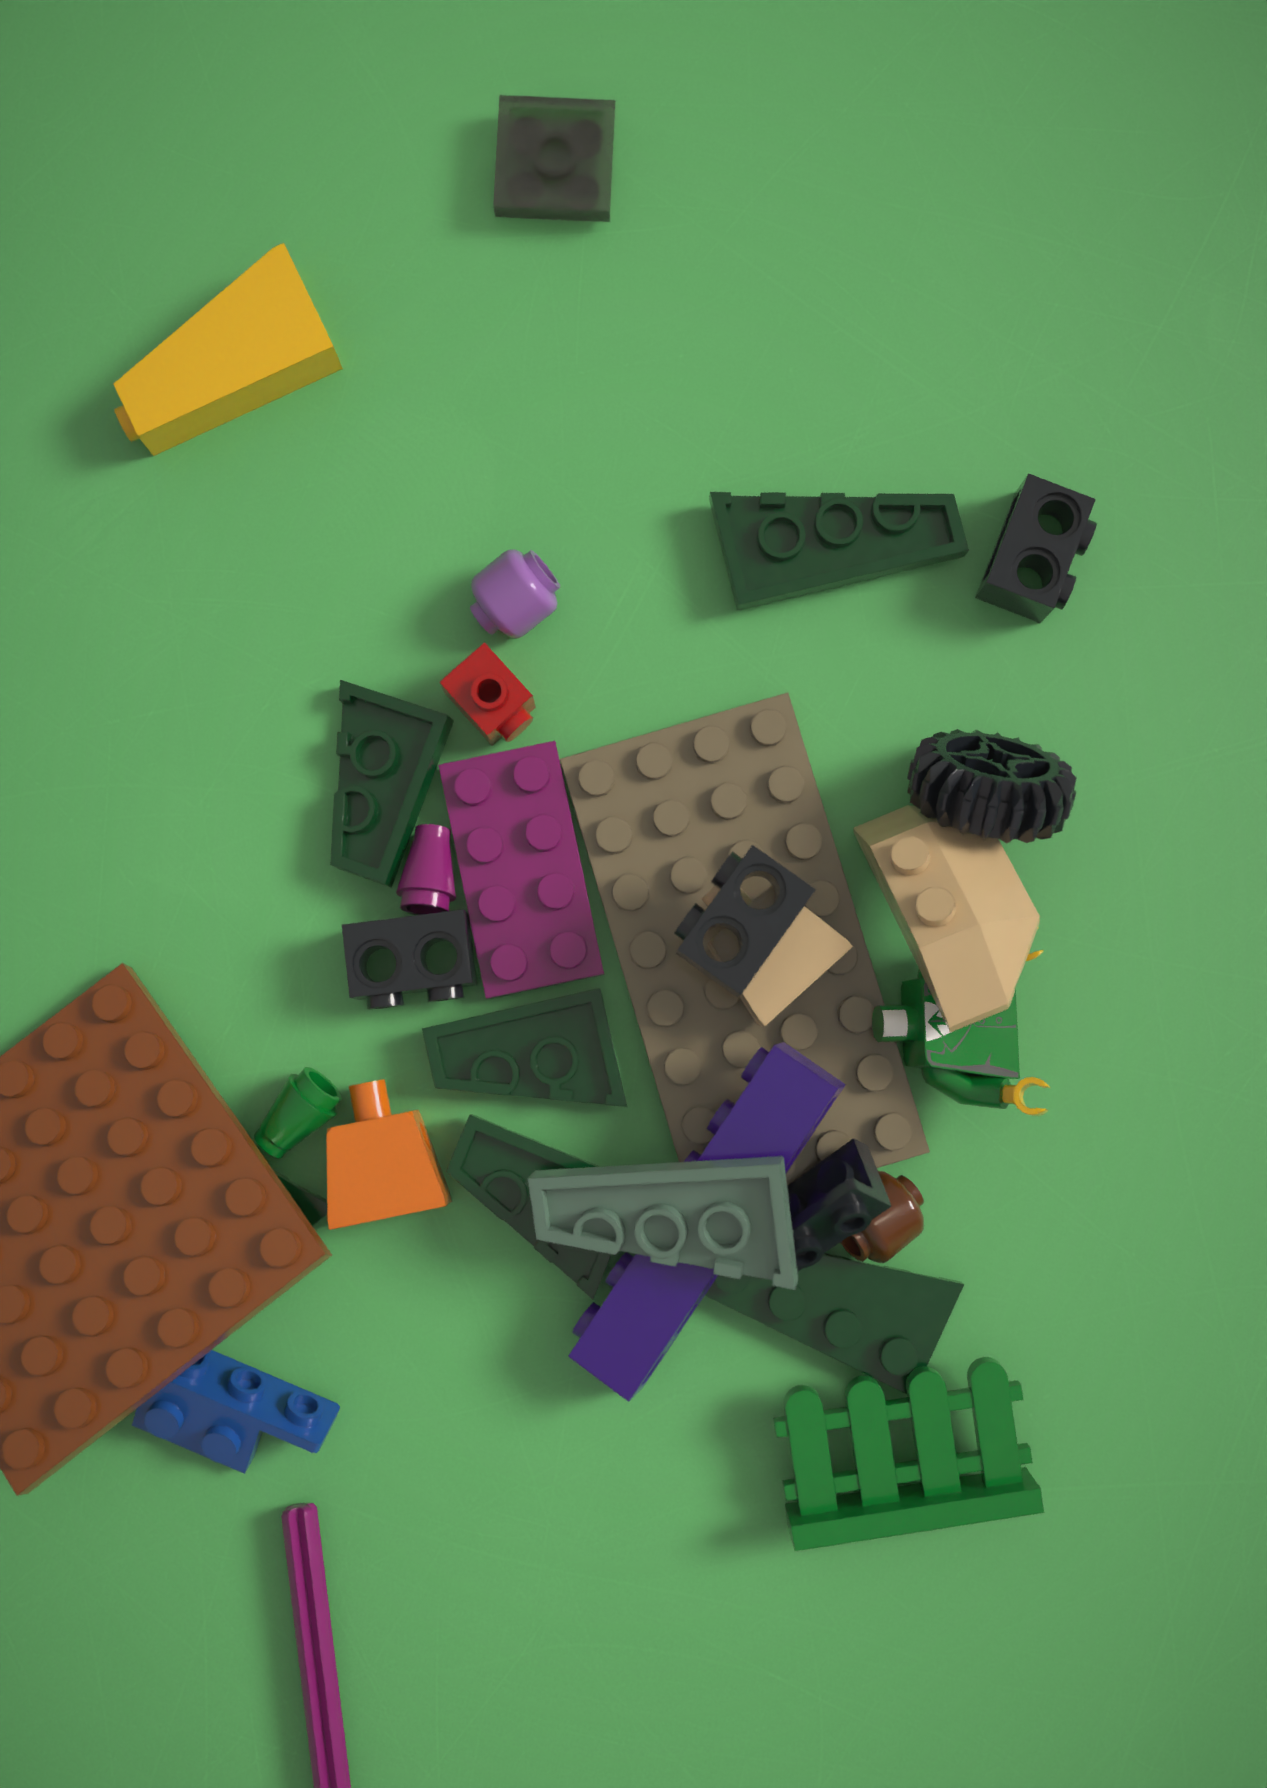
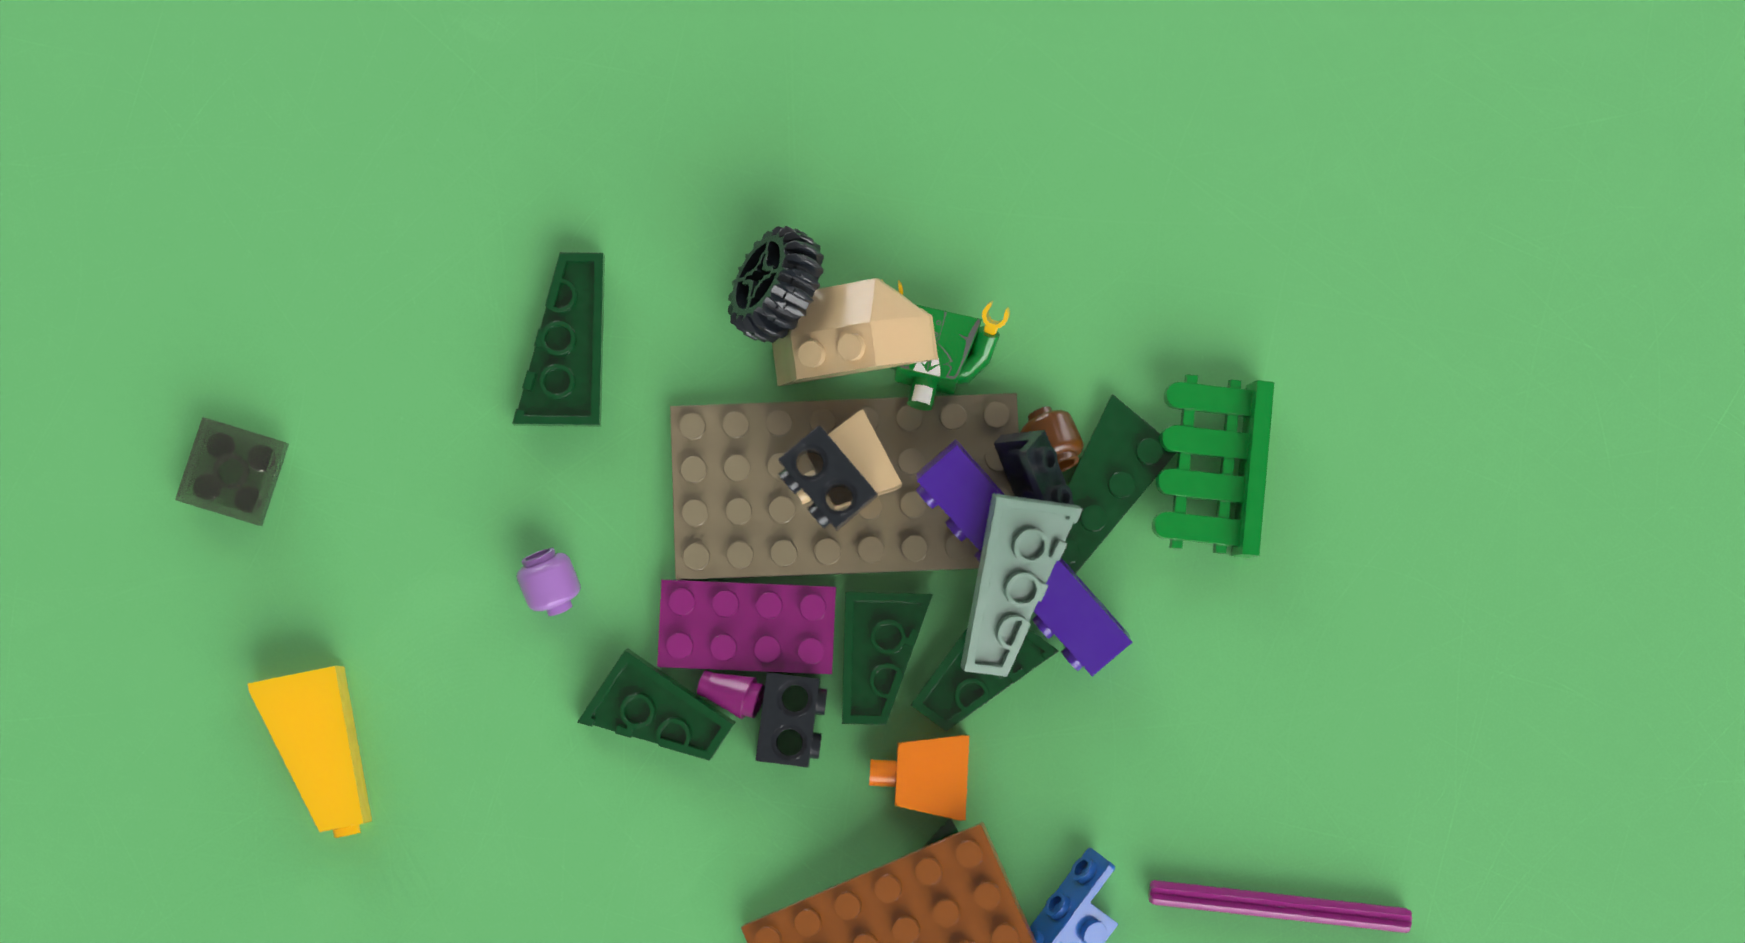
camera: 75 degrees left, 0 degrees up
(297, 1112) = (877, 825): green cone -> none
(489, 696) = (618, 617): red brick -> none
(1027, 545) = (608, 212): black brick -> none

